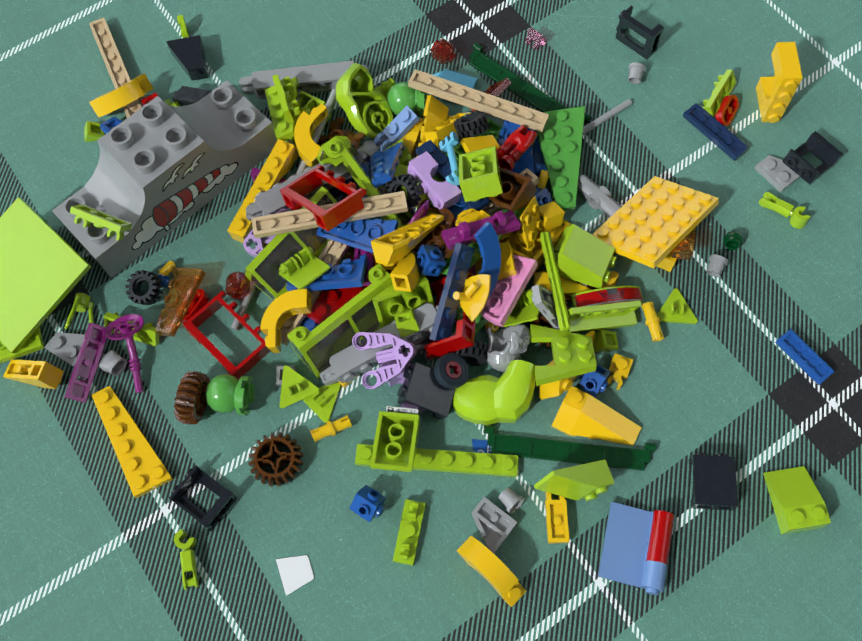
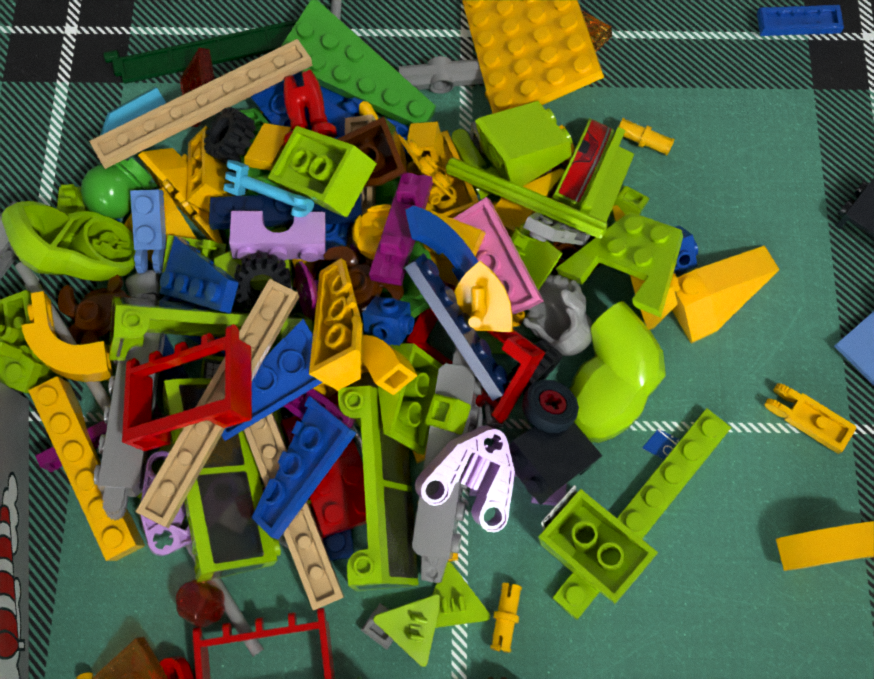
camera: 55 degrees left, 5 degrees up
(279, 311) = (296, 573): yellow arch -> none
(303, 268) = (265, 494): lime hinge -> none
(368, 503) = (649, 640): blue brick -> none
(409, 532) = (716, 613): lime plate -> none
(443, 51) = (80, 97): clear red head -> none
(492, 524) = (775, 501): light grey wing -> none
(511, 500) = (759, 457): light grey piece -> none
(568, 451) = (735, 350): dark green piece -> none
(578, 481) = (800, 356): lime slope -> none
(619, 369) = (675, 212): yellow plate -> none
(676, 310) = (645, 102): lime piece -> none
(716, 265) = (626, 21): light grey piece -> none

